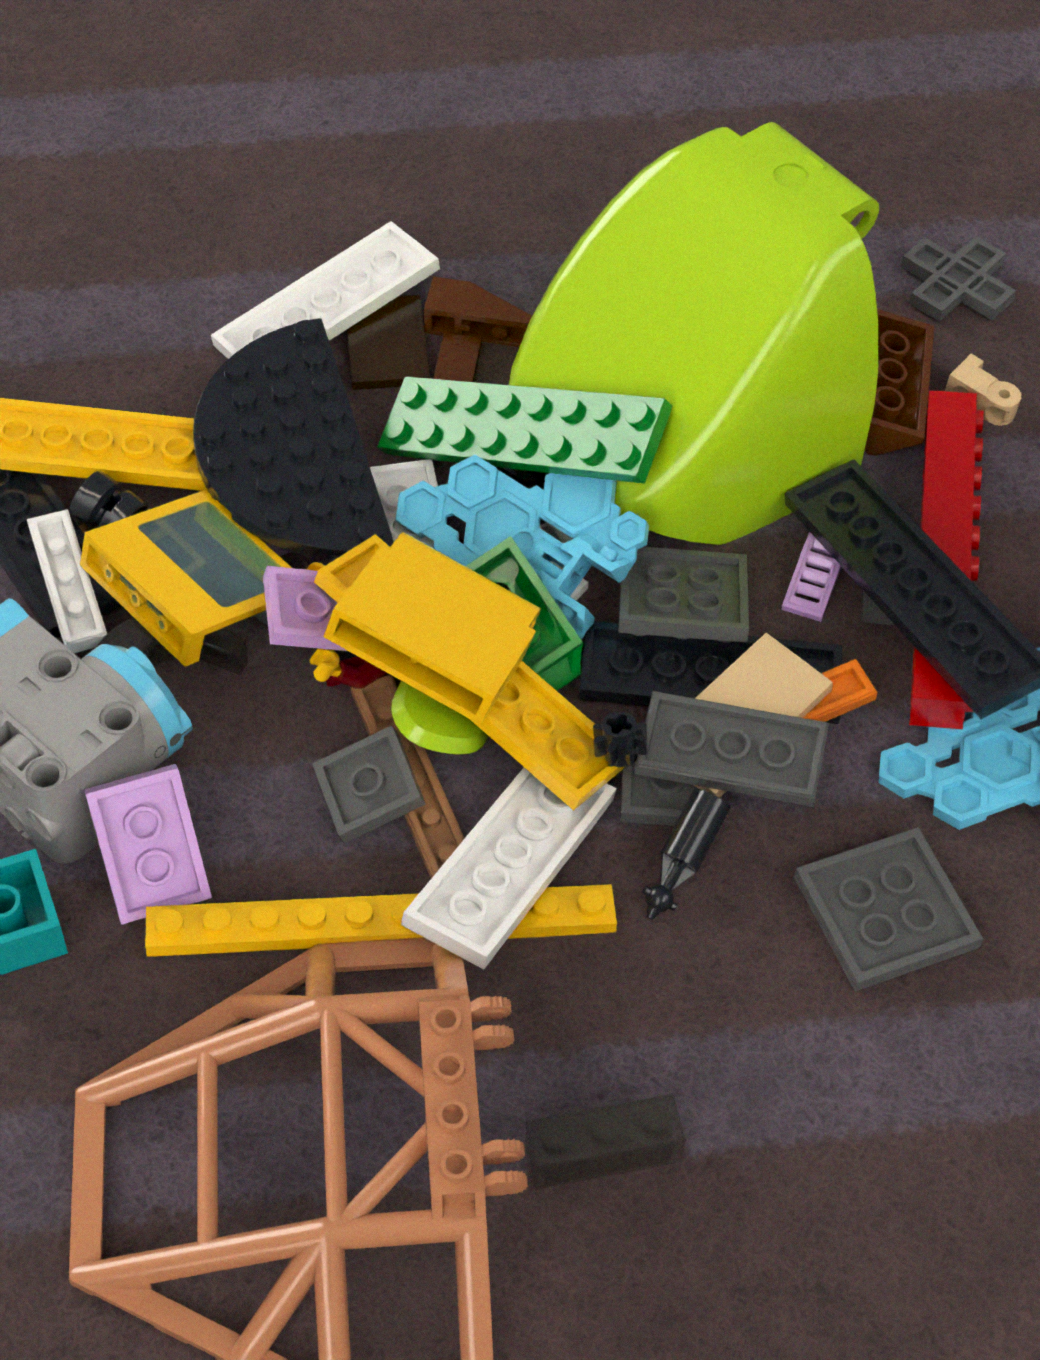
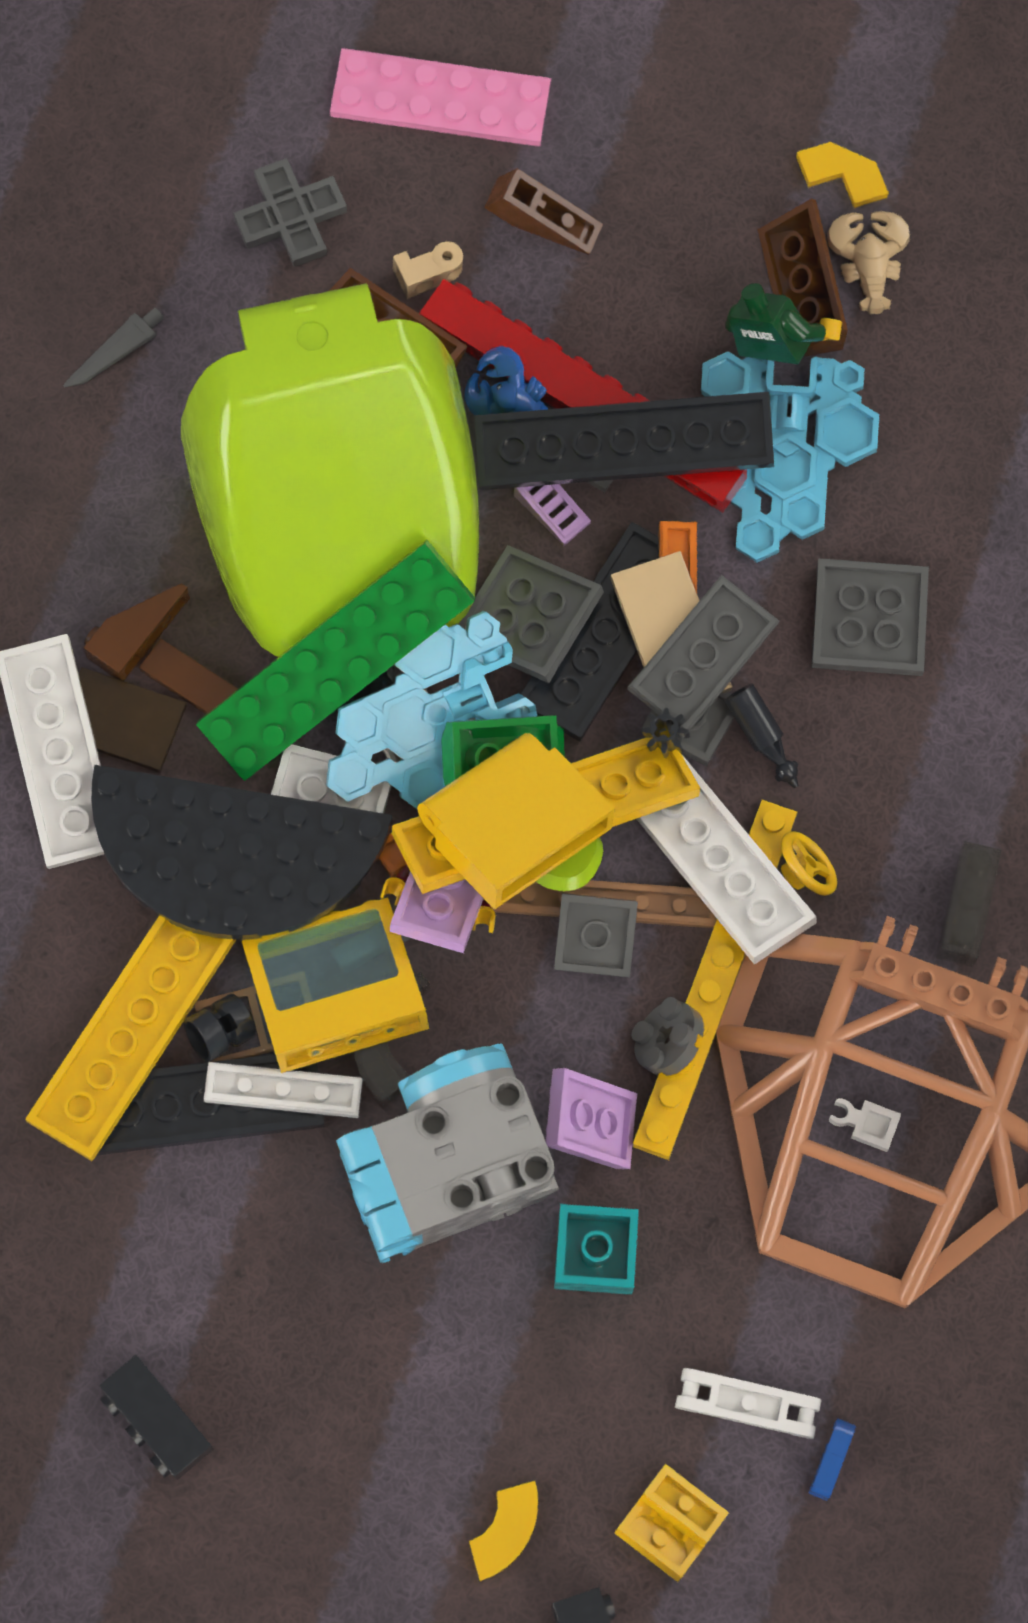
camera: 65 degrees left, 20 degrees up
(282, 887) = (673, 1020): none -> dark grey plate
(282, 1147) = (871, 1124): none -> white plate
(555, 952) = (803, 867): none -> yellow piece
(907, 487) = (505, 396): none -> blue animal

